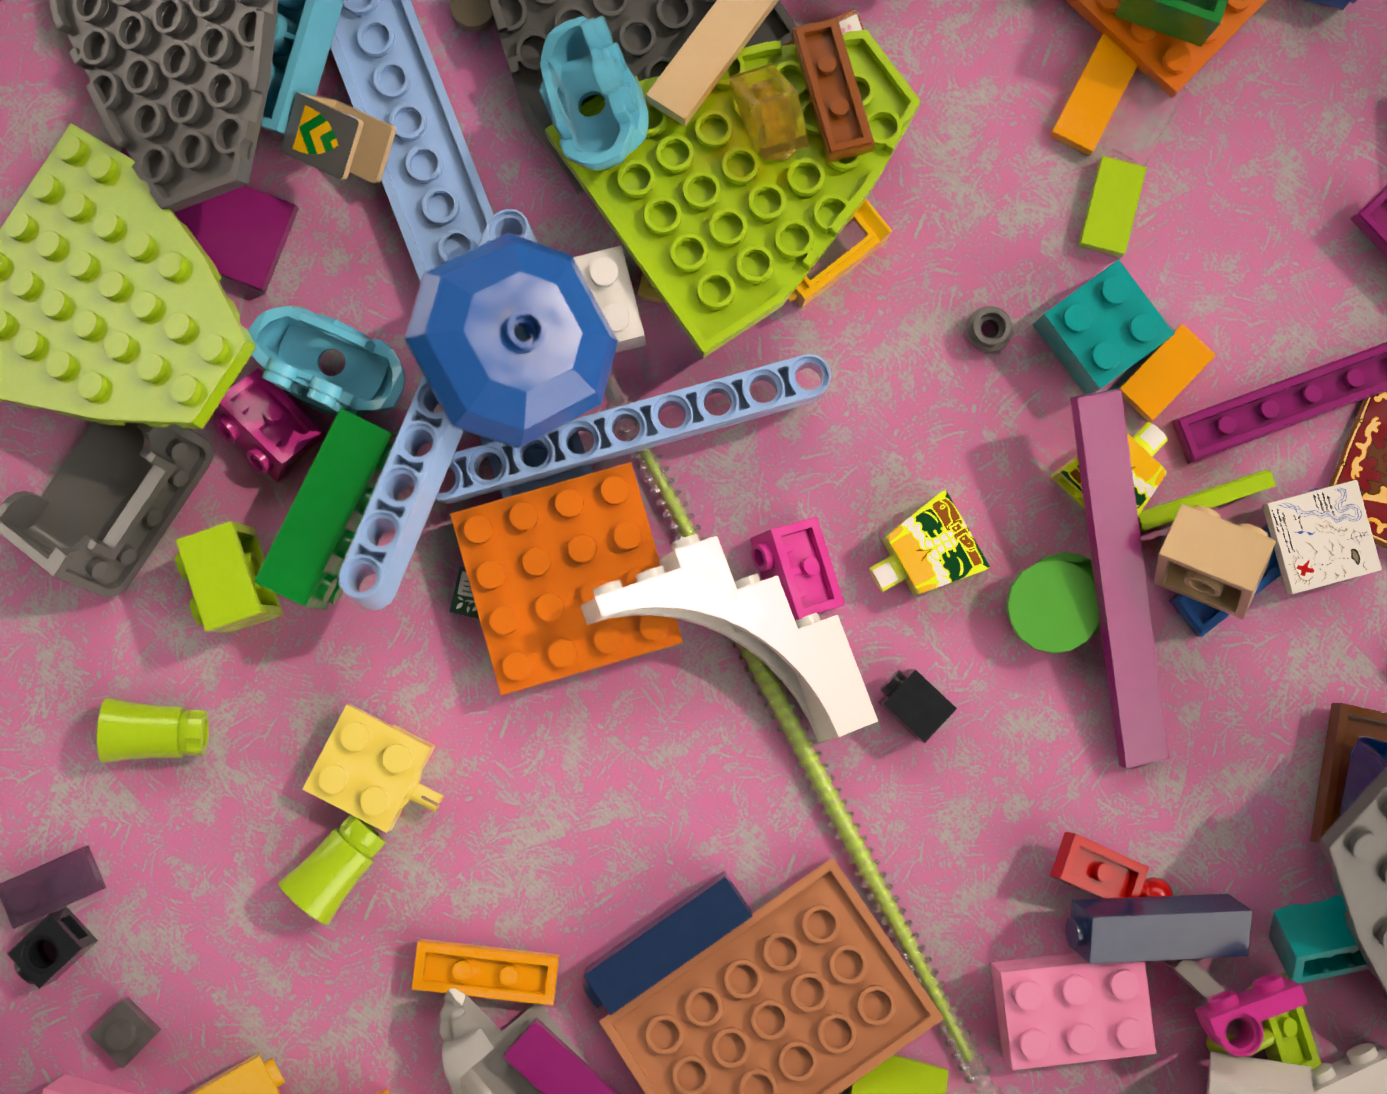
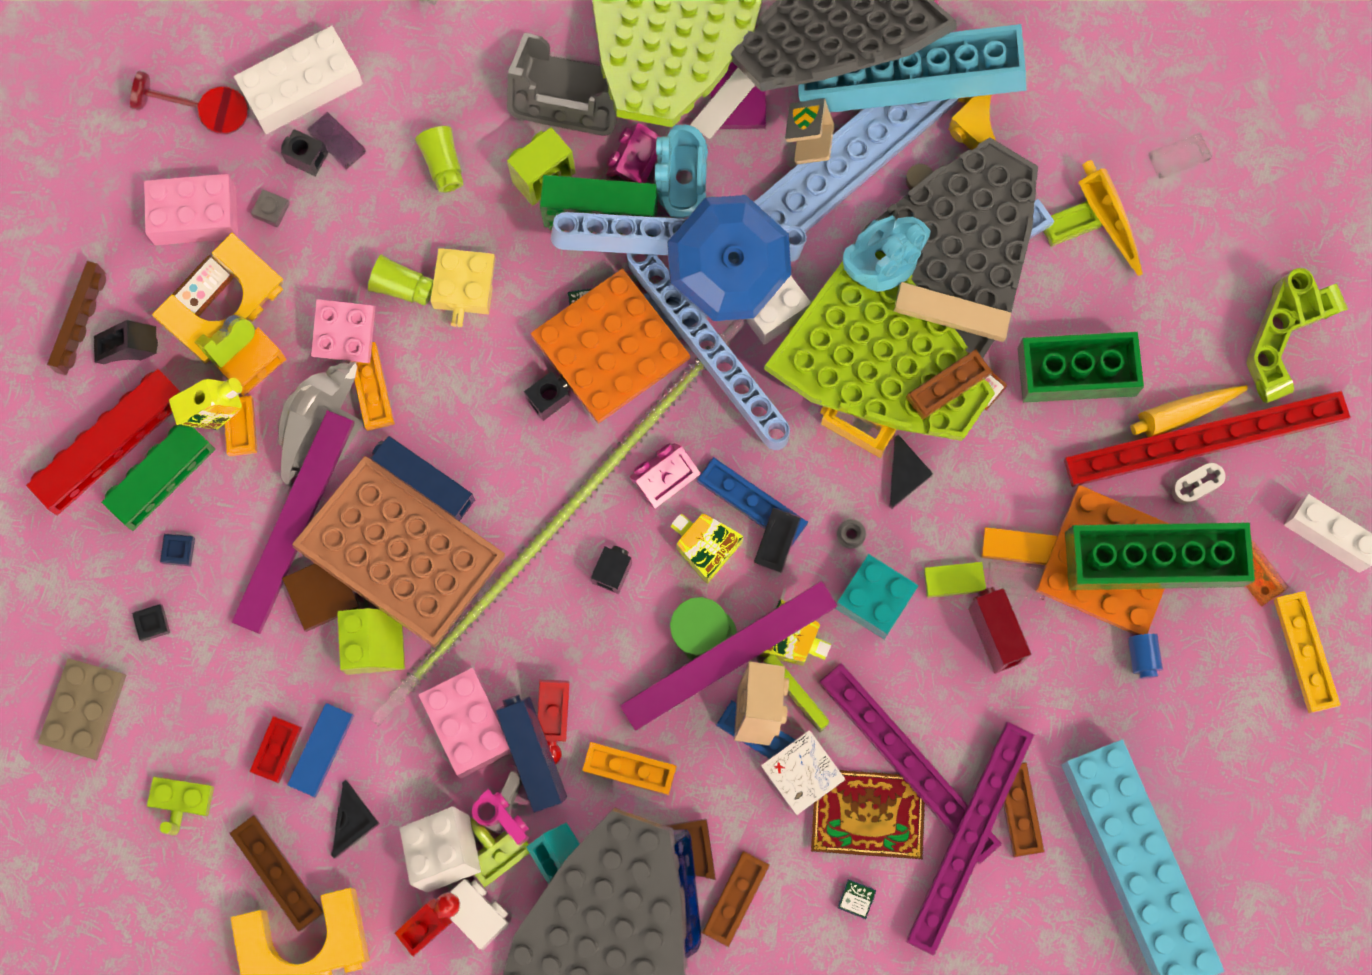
camera: 75 degrees right, 10 degrees down
(234, 256) = (723, 104): none -> white sticker
(385, 989) = (343, 331): none -> bright pink plate
(606, 723) = (545, 407): none -> black brick
(769, 112) = (918, 351): clear yellow slope -> none
(804, 653) = (630, 415): white arch -> none
(885, 455) = (742, 494): none -> blue tile
(927, 211) = (907, 472): none -> black tile
(962, 440) = (777, 540): none -> black tile
(1166, 373) = (867, 647): light orange tile -> none
(1222, 787) = (629, 768): none -> light orange plate
(1225, 170) = (998, 629): none -> dark red brick

